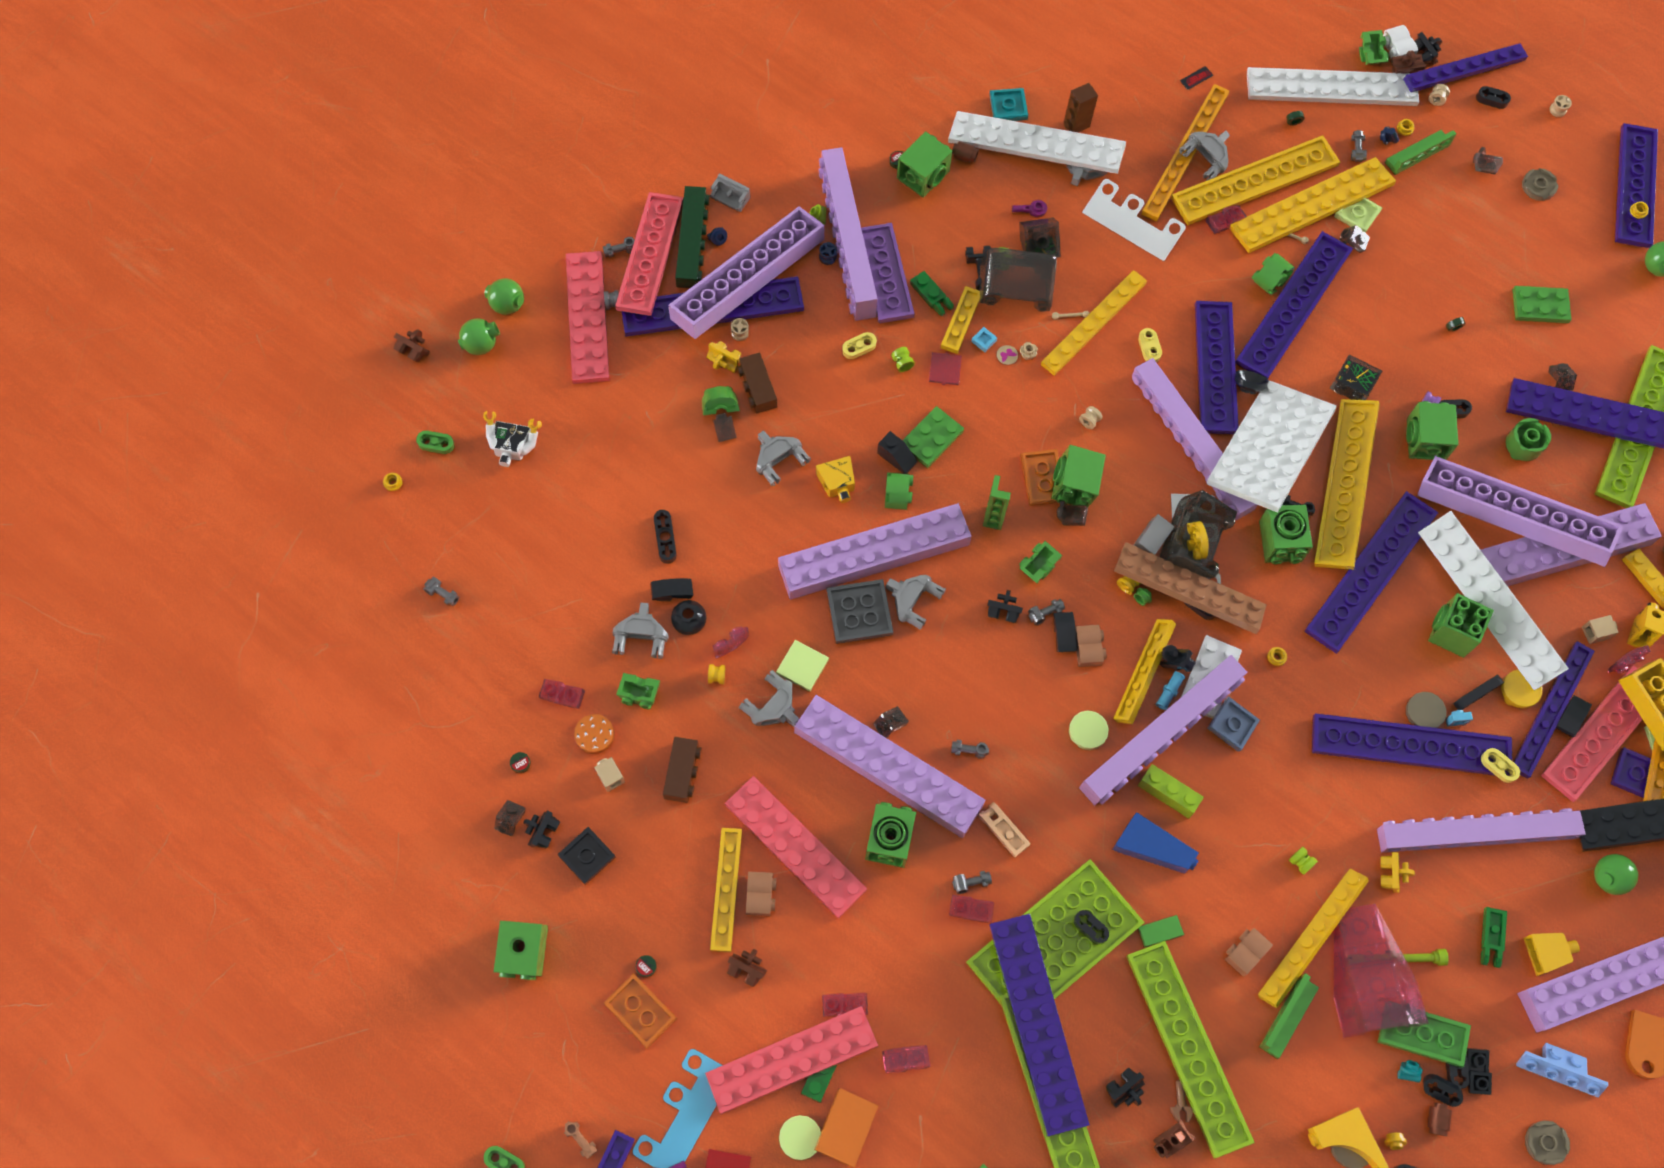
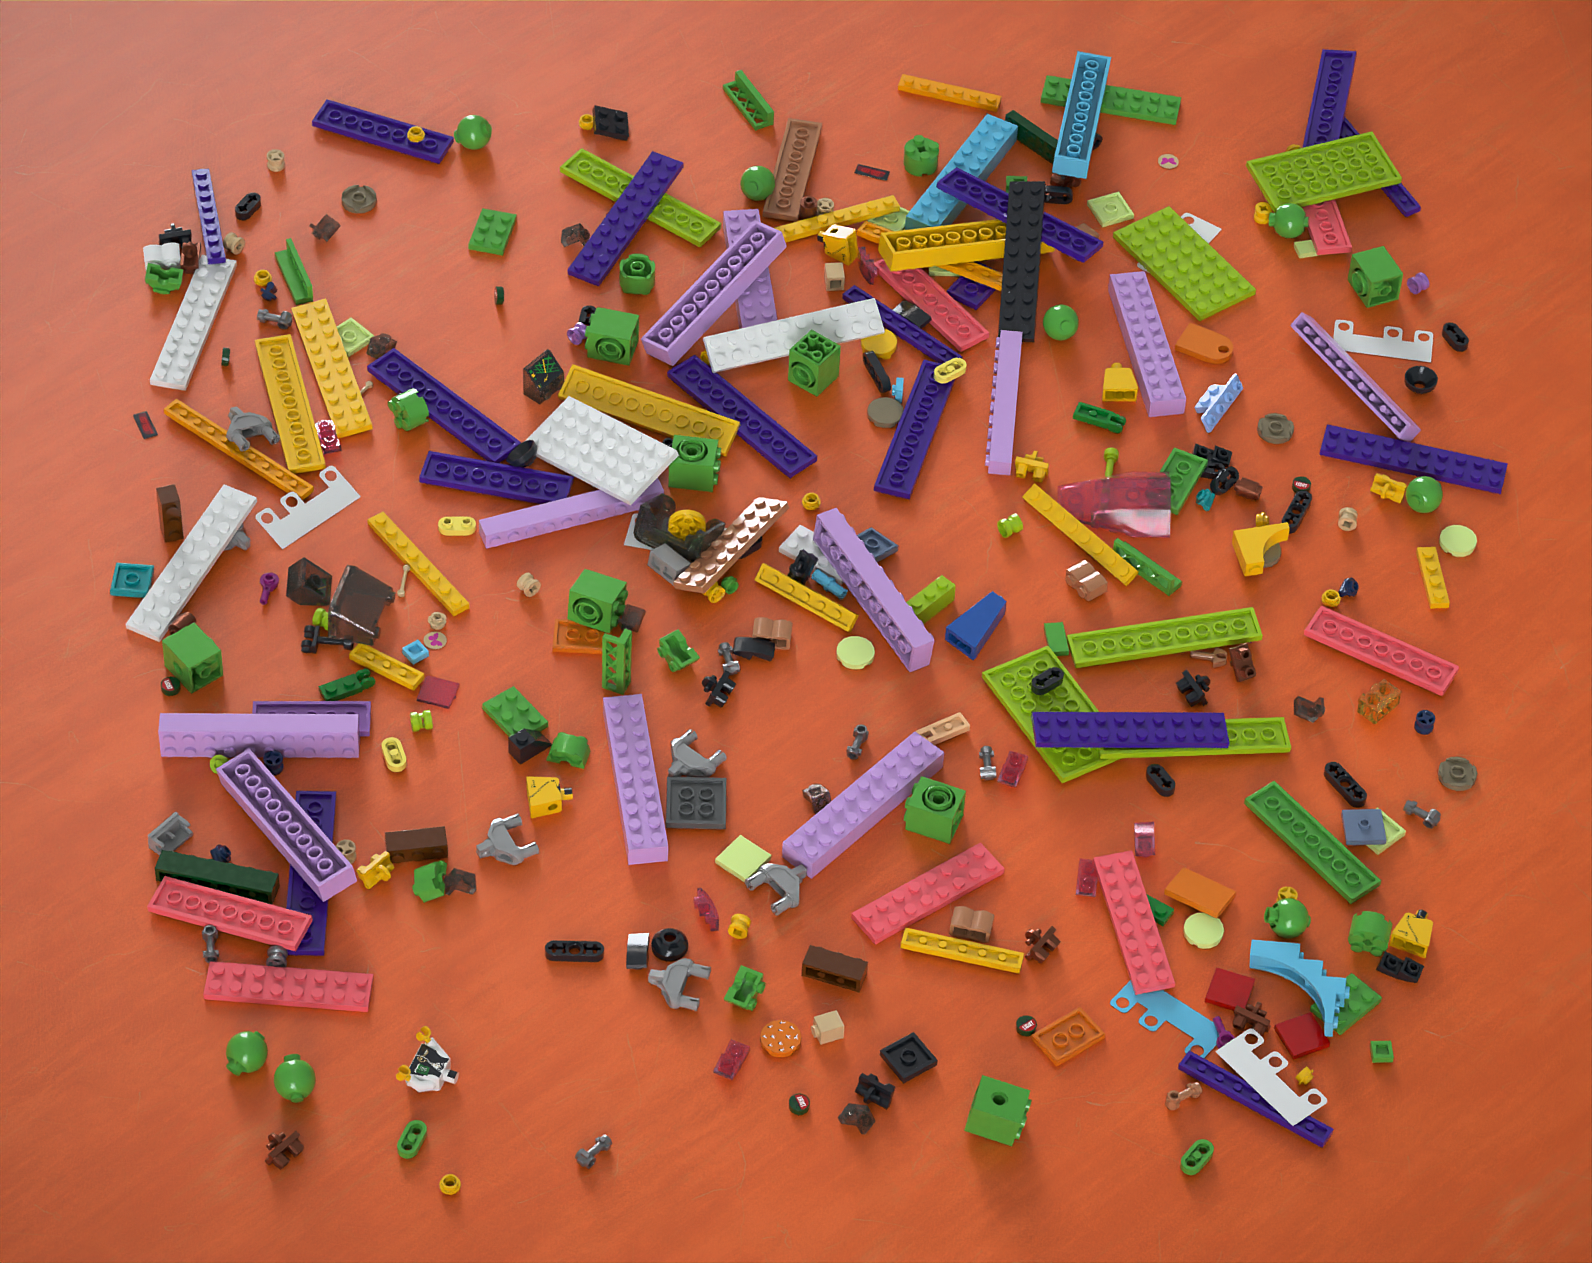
camera: 80 degrees left, 20 degrees down
(996, 1070) = (1162, 779): none -> black beam

